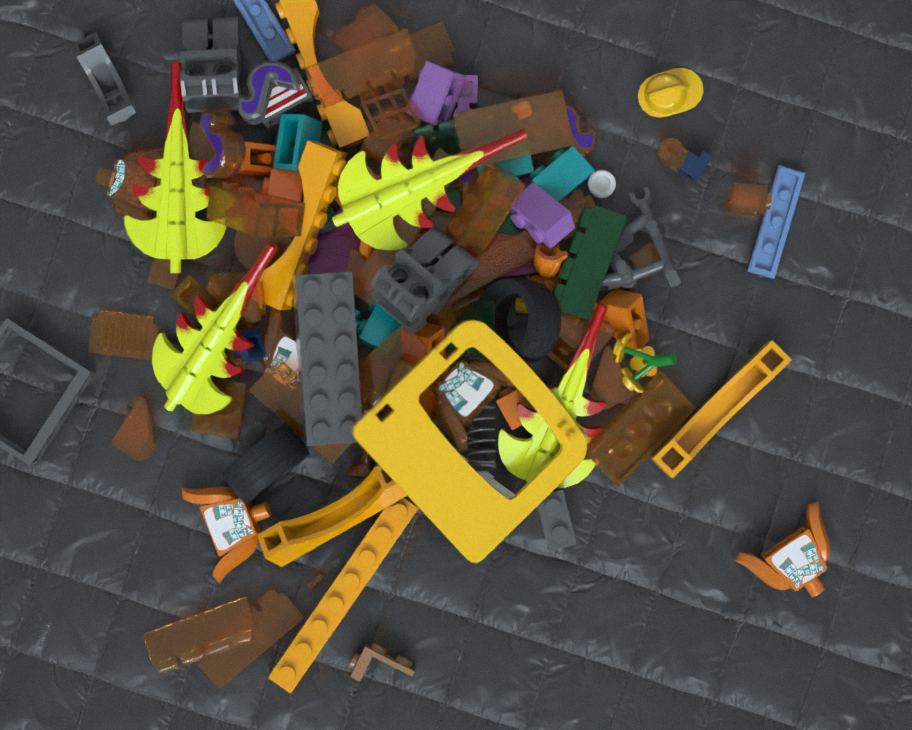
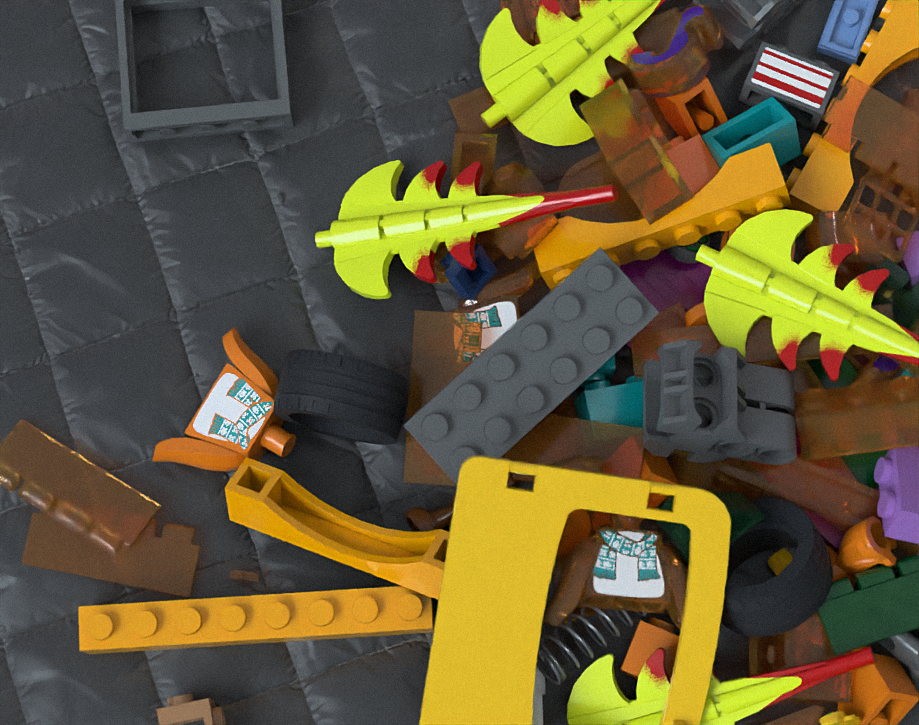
camera: 50 degrees right, 10 degrees down
(123, 334) = (363, 123): clear orange window -> none
(137, 432) = (261, 224): clear orange slope -> none
(229, 419) = (359, 316): clear orange hinge -> none
(260, 85) = (788, 43): dark grey animal -> none

